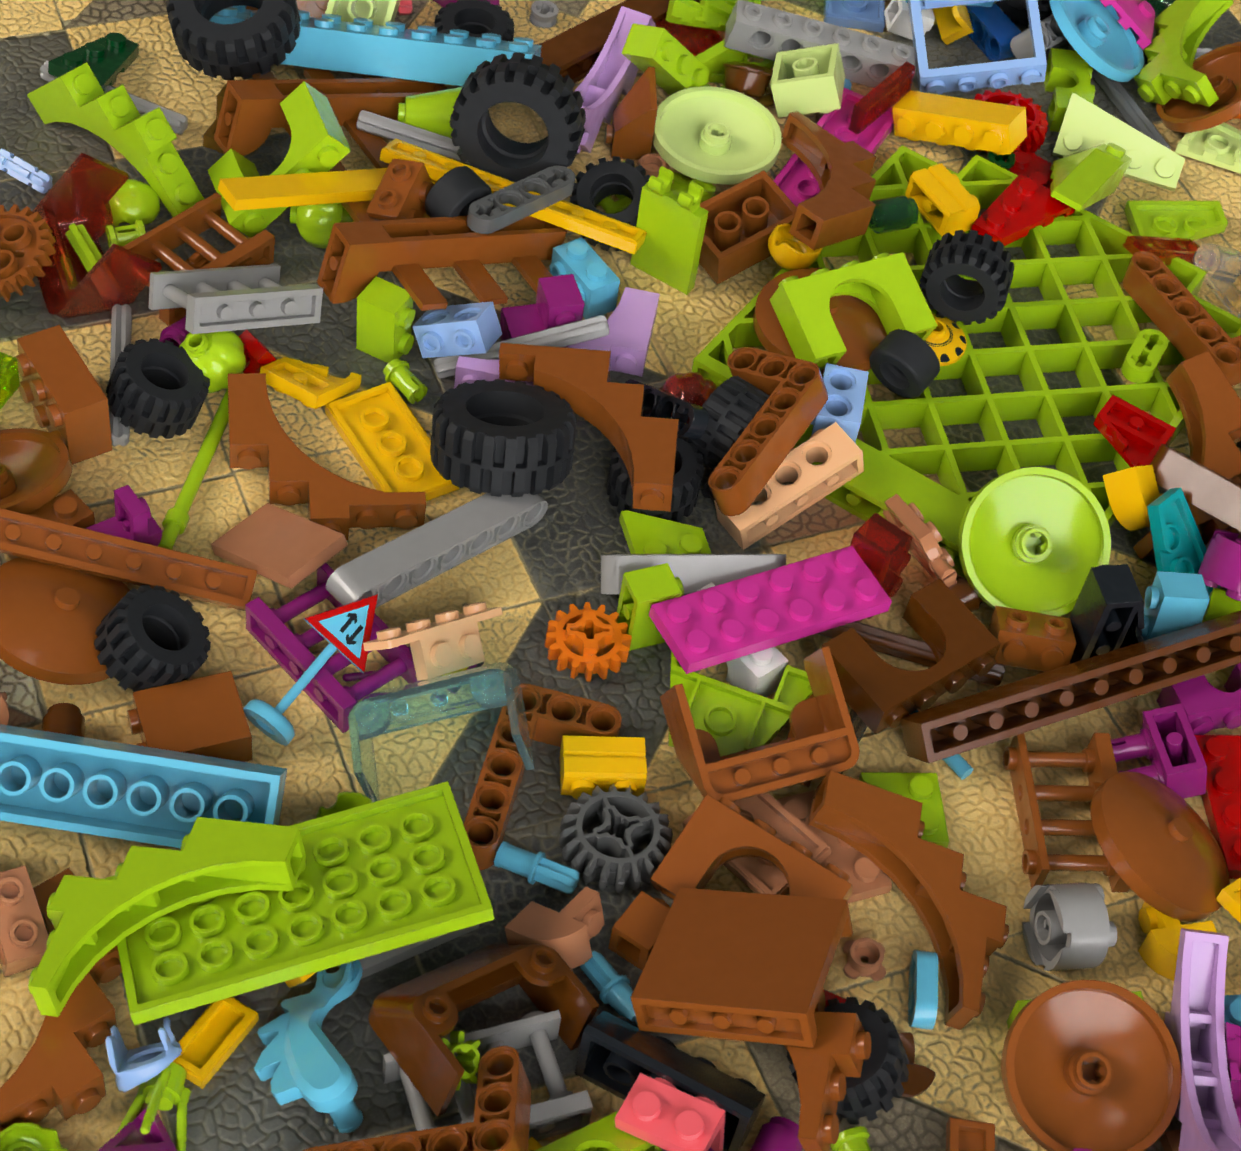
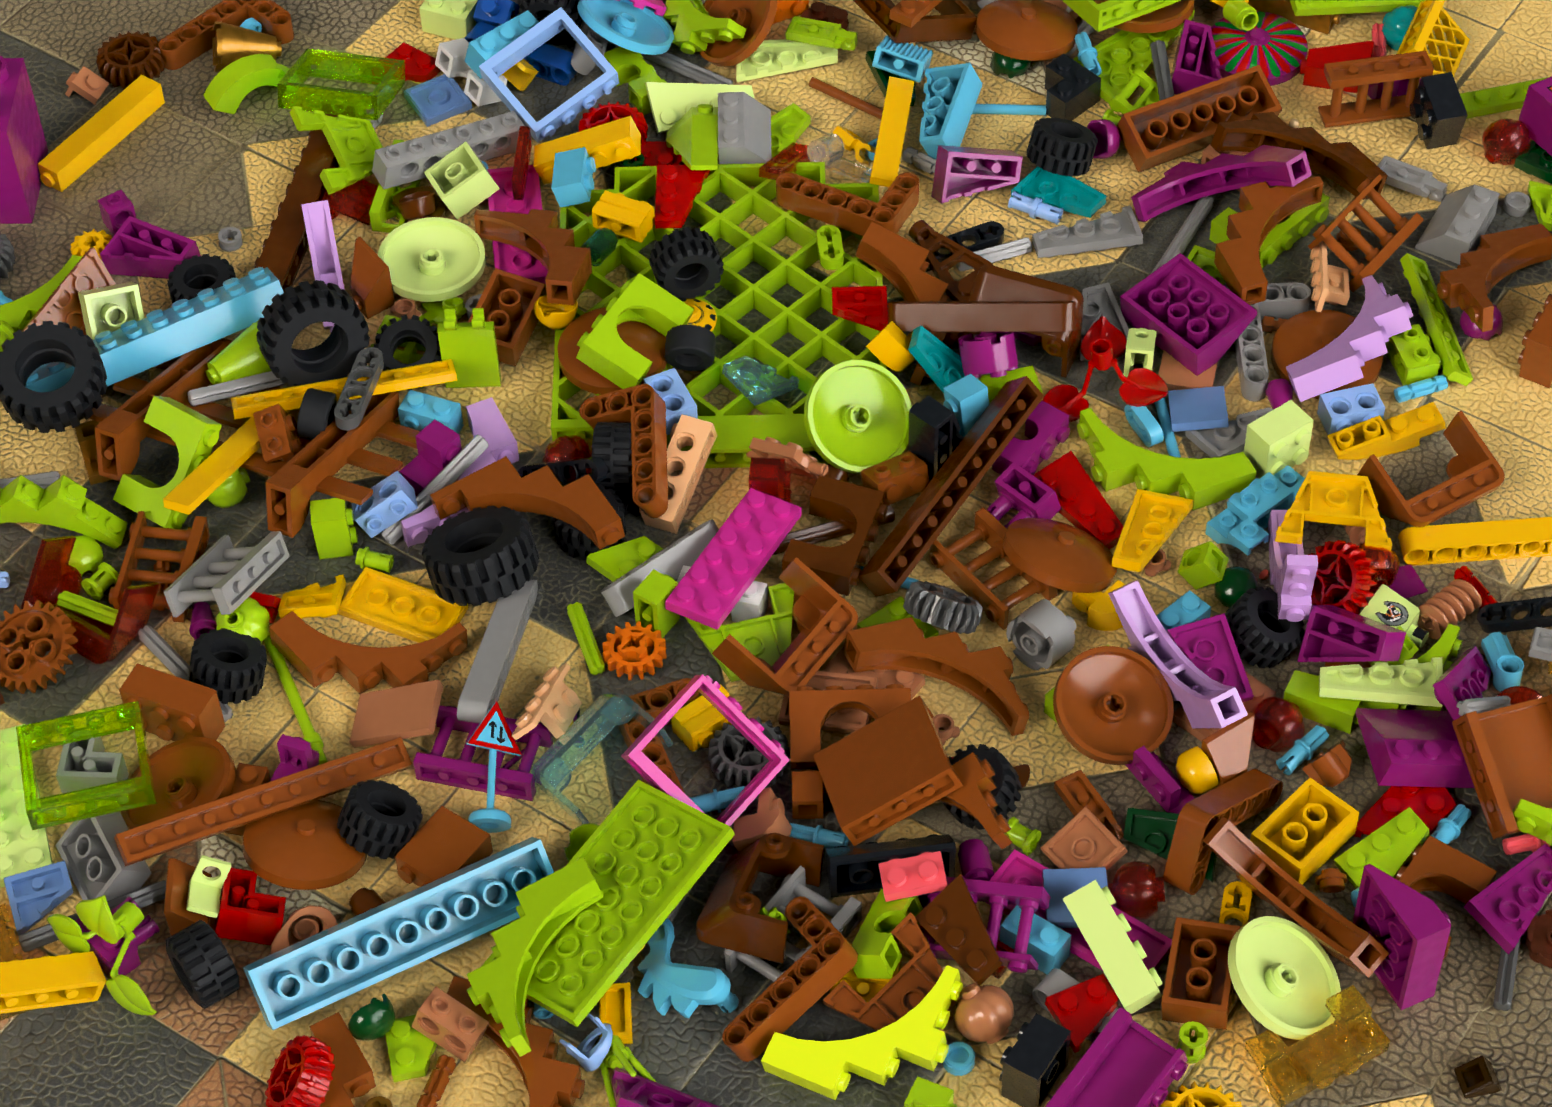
camera: 25 degrees left, 0 degrees up
(477, 828) = (731, 710): none -> dark pink window
(549, 596) = (586, 638): none -> lime axle
(673, 63) = (359, 222): lime brick -> none
(919, 134) = (573, 177): none -> medium azure brick
(923, 990) = (987, 723): medium azure beam -> none
(953, 442) = (757, 380): none -> clear light blue wing
(971, 816) = (943, 607): none -> dark grey gear
(1141, 192) = (743, 129): none -> light grey slope

